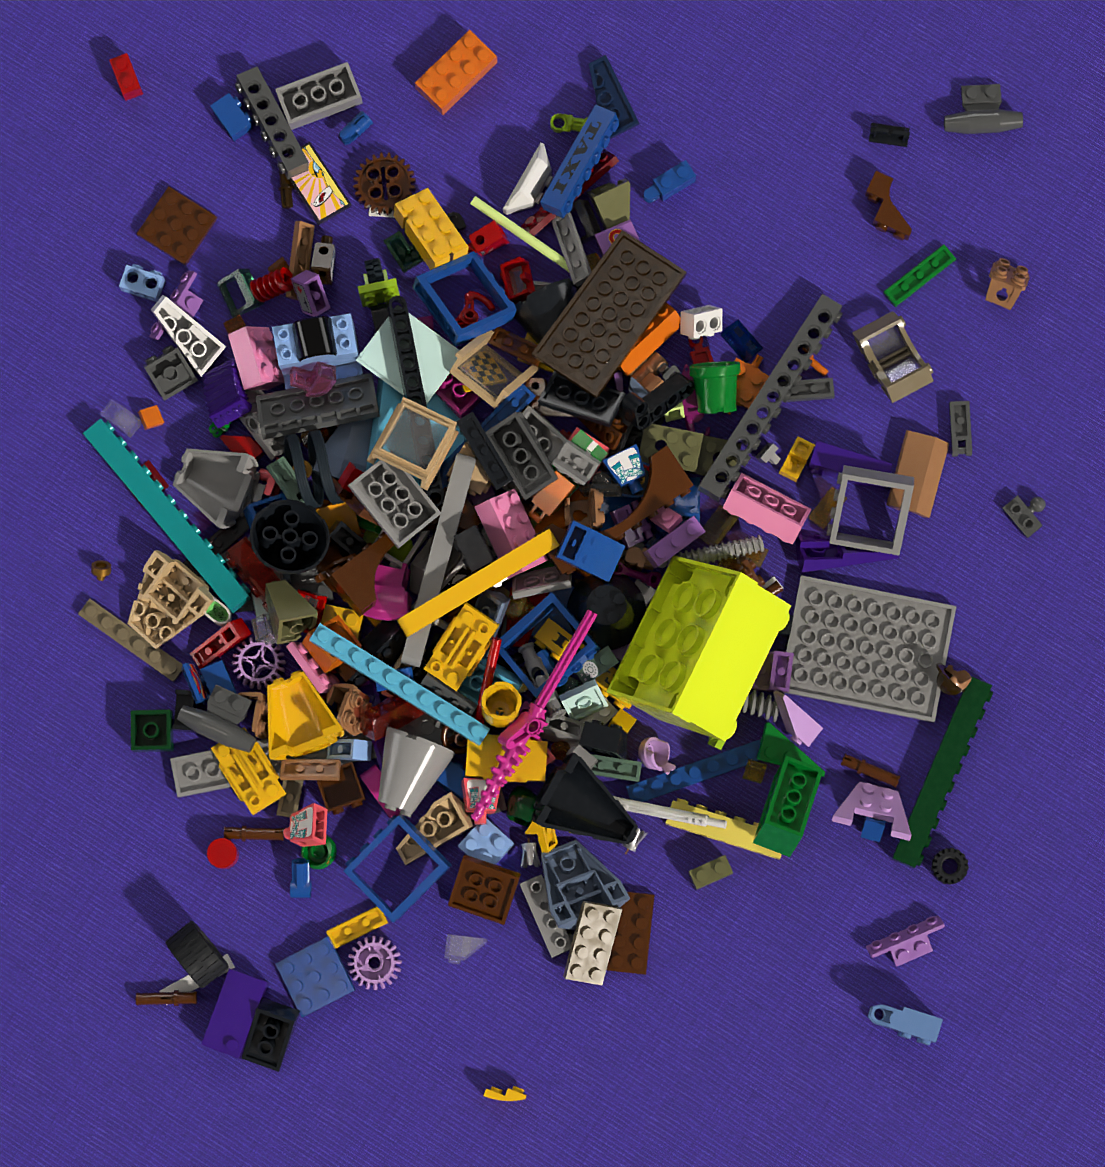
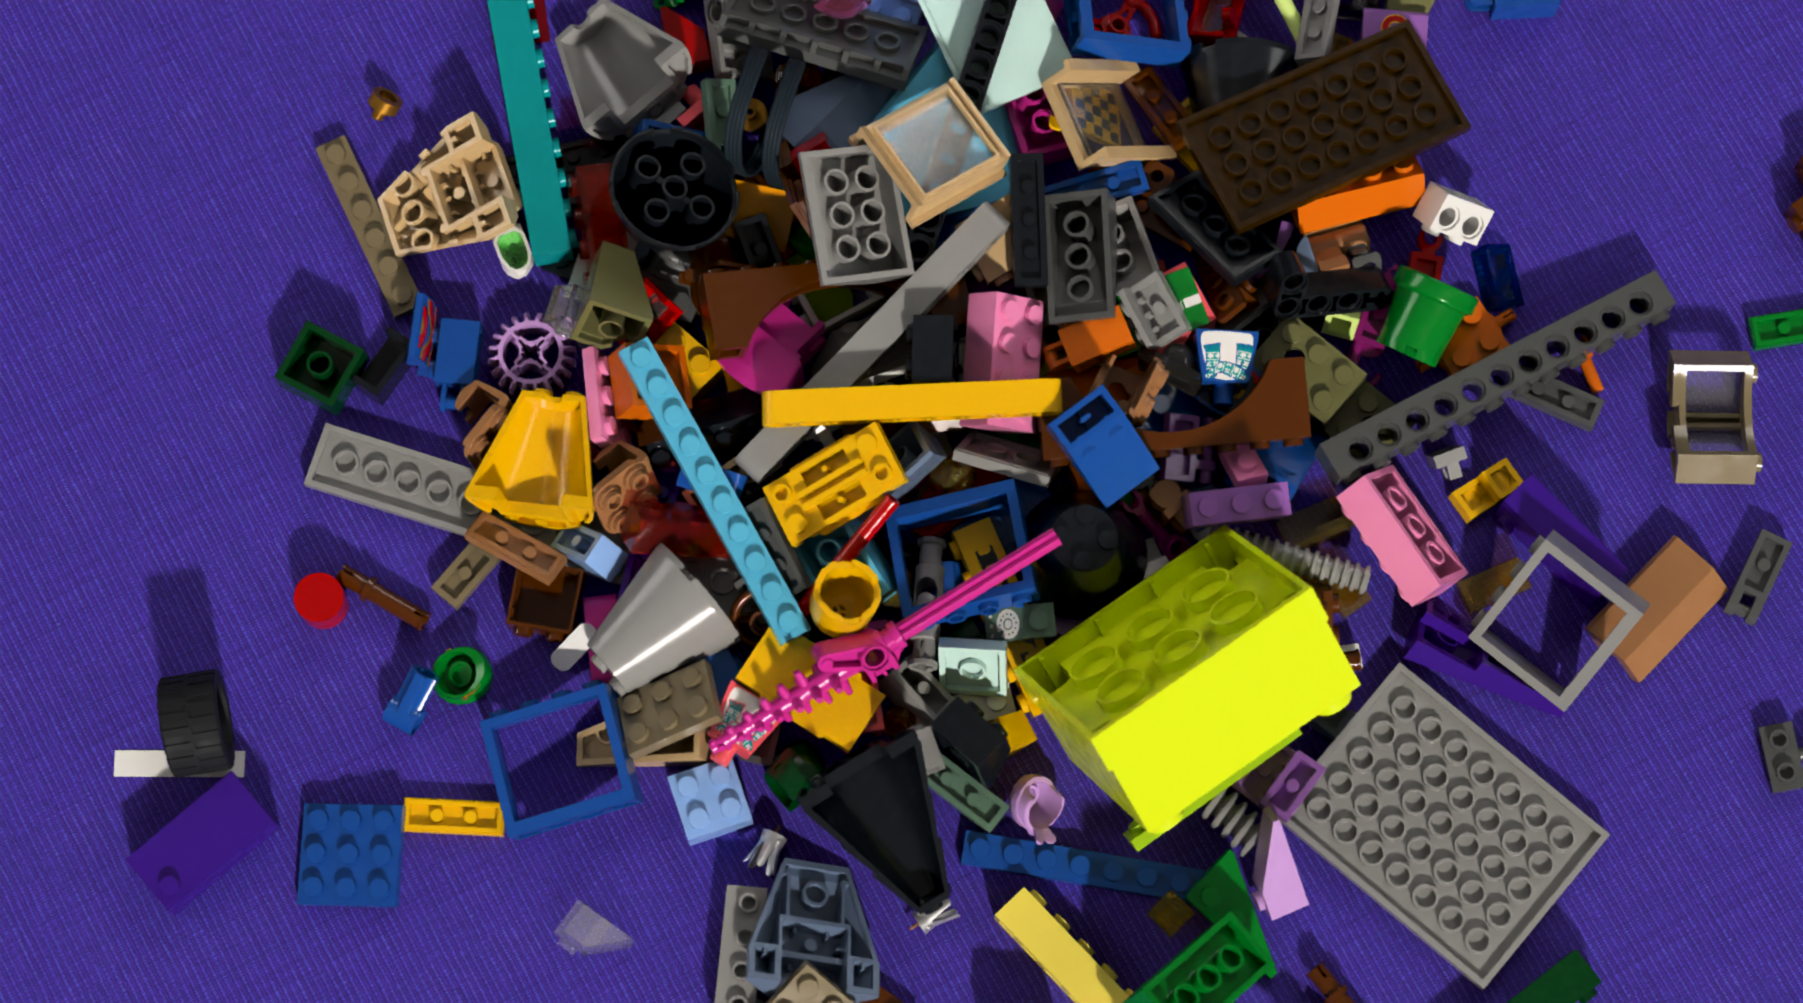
camera: 25 degrees right, 5 degrees down
(166, 998) = (129, 771): reddish brown pin -> none
(220, 643) = (495, 297): red slope -> none
(220, 720) = (425, 405): dark grey plate -> none
(250, 776) = (427, 502): yellow piece -> none
(270, 1034) = (237, 902): black slope -> none
(308, 826) = (465, 627): coral torso -> none
(362, 960) = (434, 868): lavender gear -> none
(369, 804) = (573, 647): none -> white sticker
(439, 810) = (669, 709): none -> dark tan plate
(484, 889) = (670, 863): reddish brown plate -> none
(546, 836) = (806, 836): yellow slope -> none
(670, 813) = (1009, 904): white axle -> none
(952, 681) = (1542, 941): piece -> none

